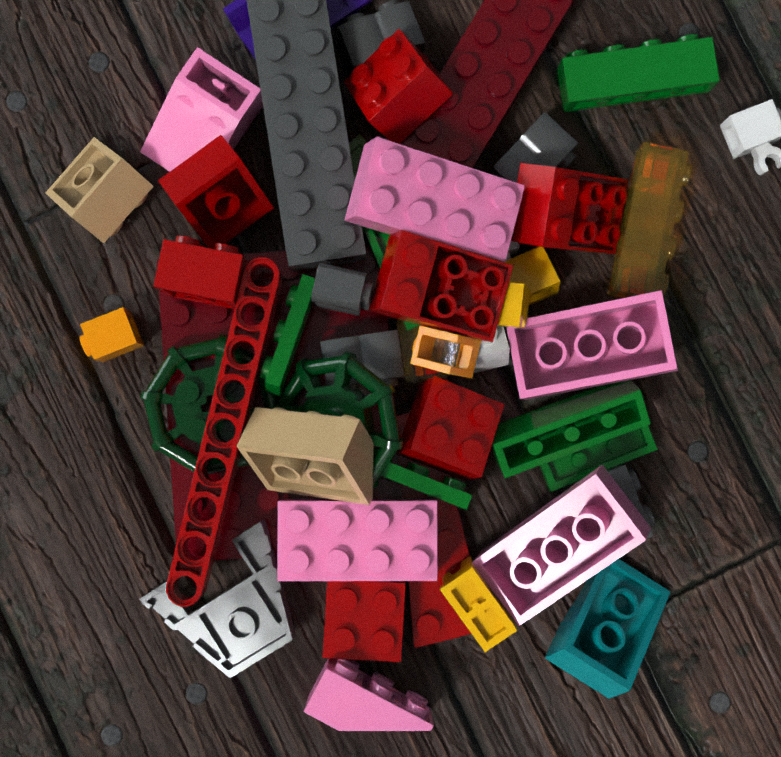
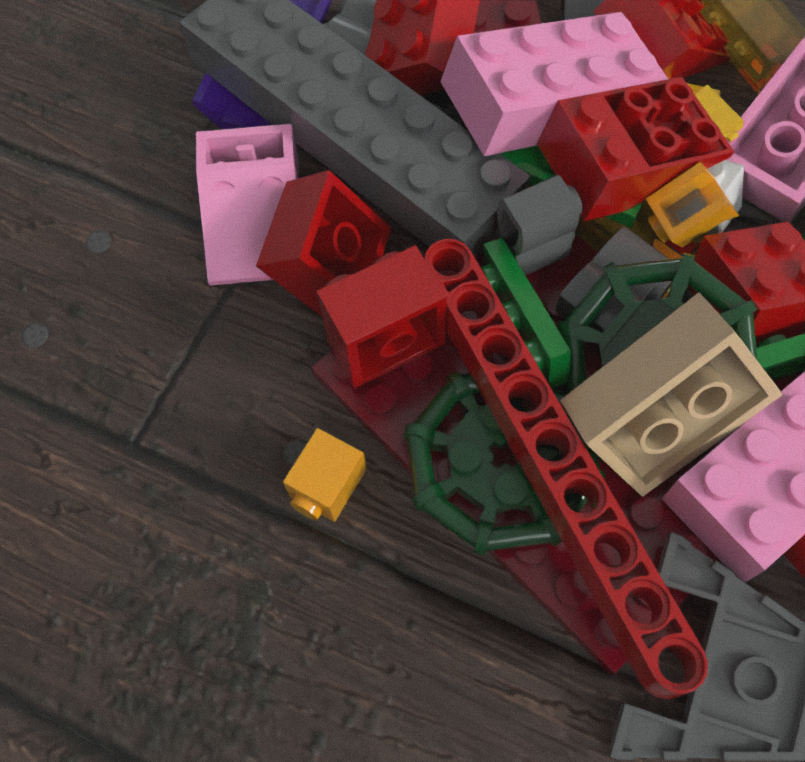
camera: 30 degrees left, 20 degrees down
(99, 190) = (194, 342): tan slope -> none

